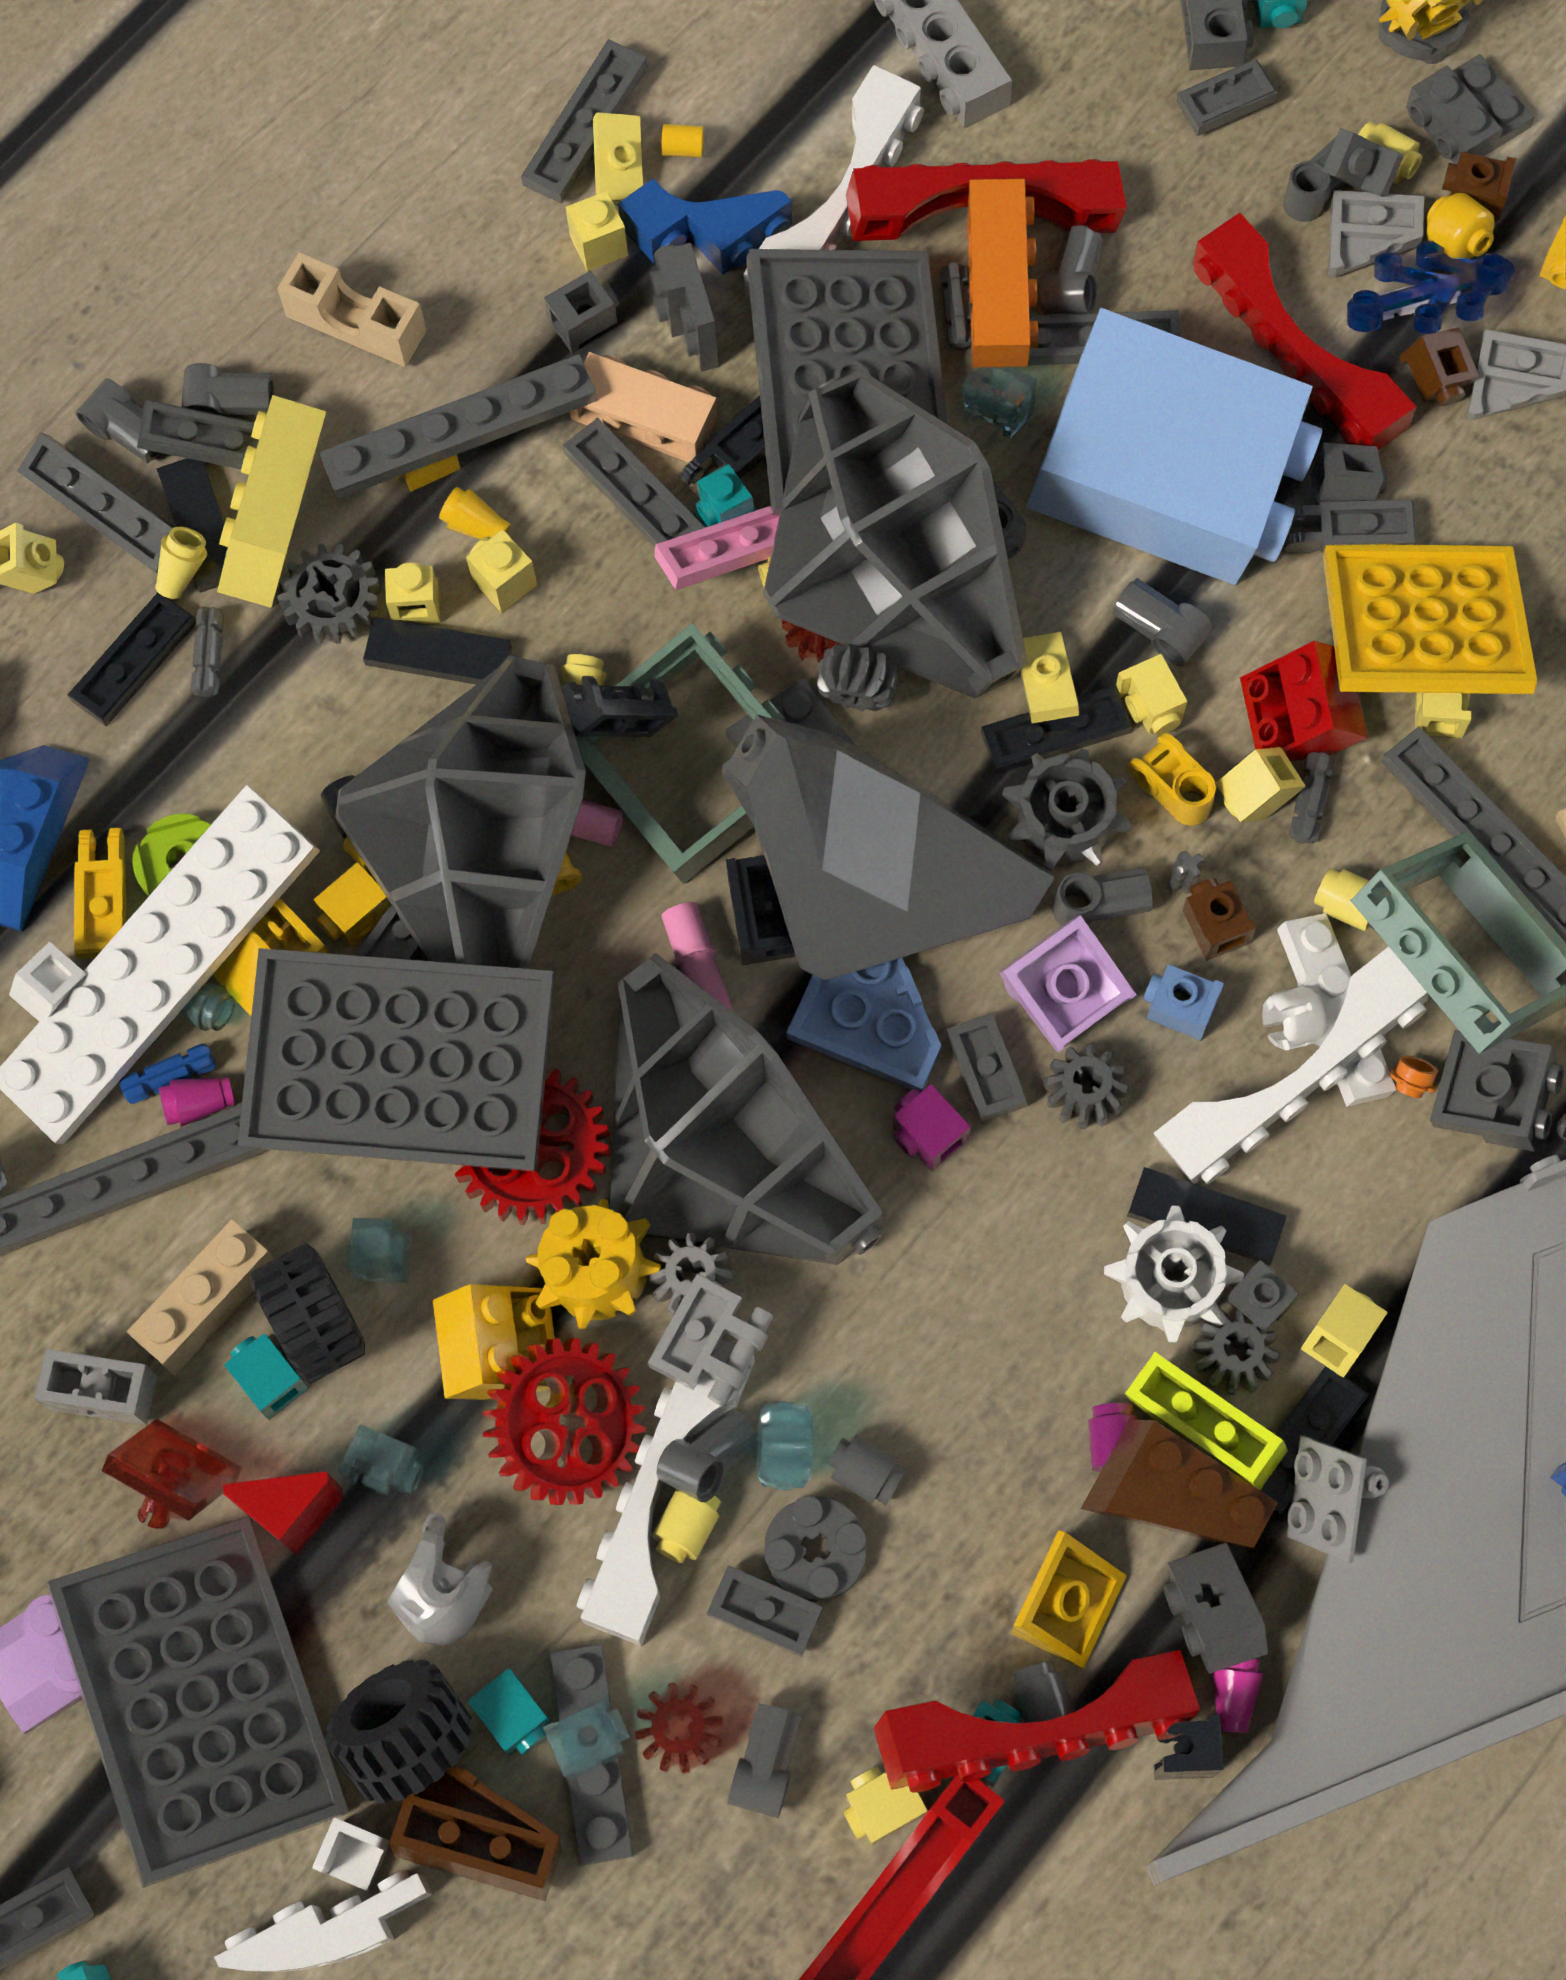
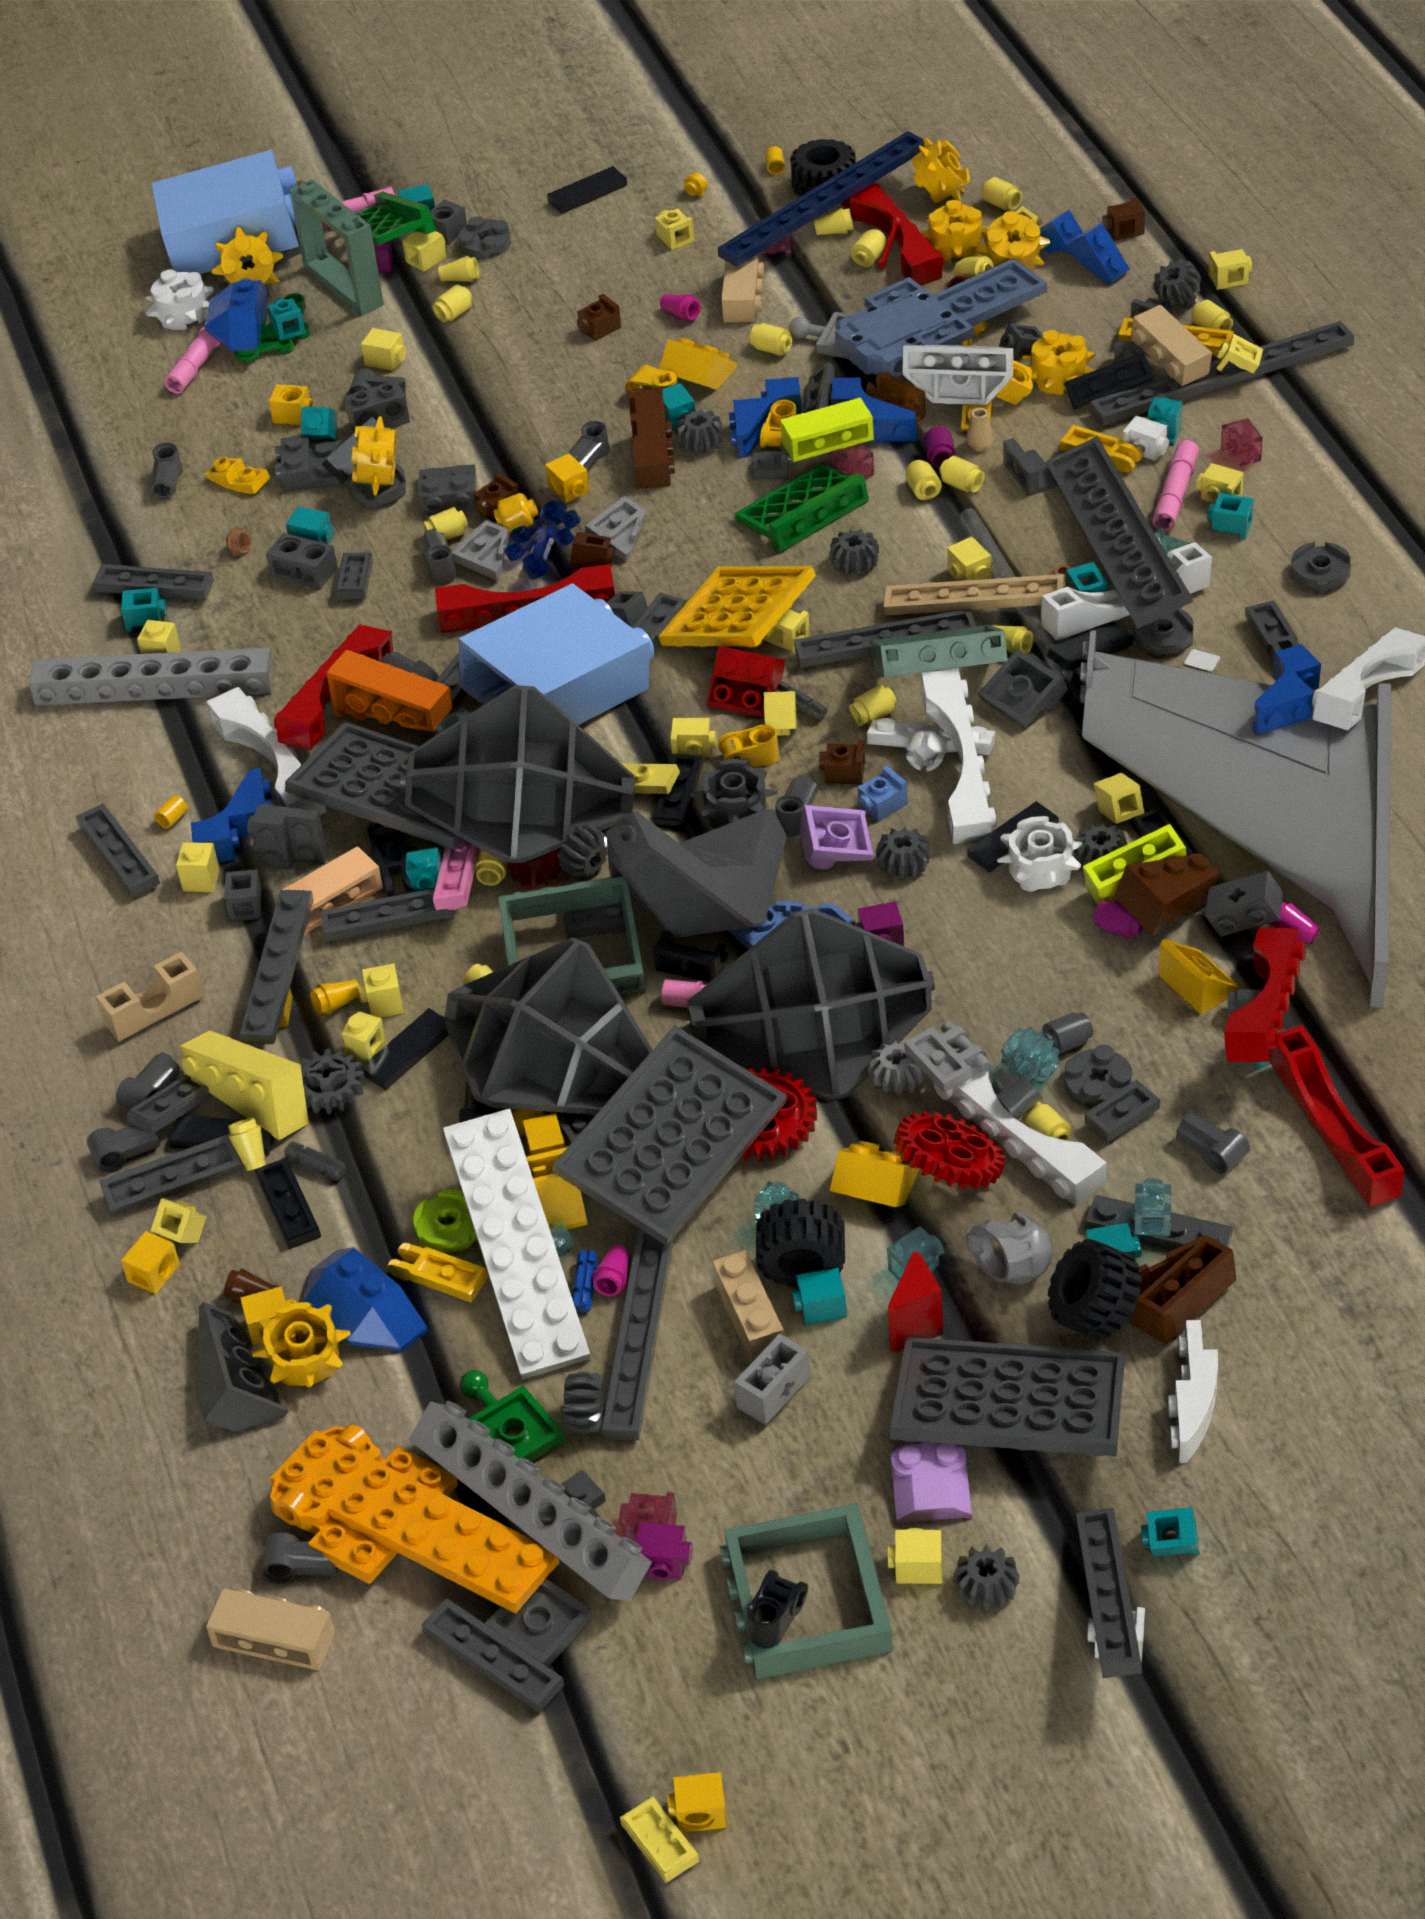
camera: 60 degrees left, 25 degrees down
(45, 981) = (483, 1310): white brick -> none
(170, 1472) = (857, 1362): clear red tile -> none
(351, 1854) = (1150, 1362): white panel -> none
(592, 1263) = (858, 1103): yellow brick -> none
(617, 155) = (155, 840): light yellow plate -> none
(617, 709) = (533, 937): black hinge -> none
(661, 1728) = (1172, 1168): clear red gear -> none
(878, 1809) = (1269, 1096): light yellow brick -> none
(956, 304) = (385, 730): dark grey axle -> none
(986, 1067) = (859, 891): dark grey plate -> none
(1171, 628) = (655, 716): dark grey piece -> none
(1186, 872) = (810, 755): dark grey axle -> none
(1201, 1749) = (1321, 941): black hinge -> none
(1262, 1296) = (1078, 816): dark grey bracket -> none
(1329, 1497) = (1213, 828): light grey hinge -> none
(1362, 163) = (452, 528): dark grey bracket -> none
(1414, 1076) = (993, 720): orange plate -> none

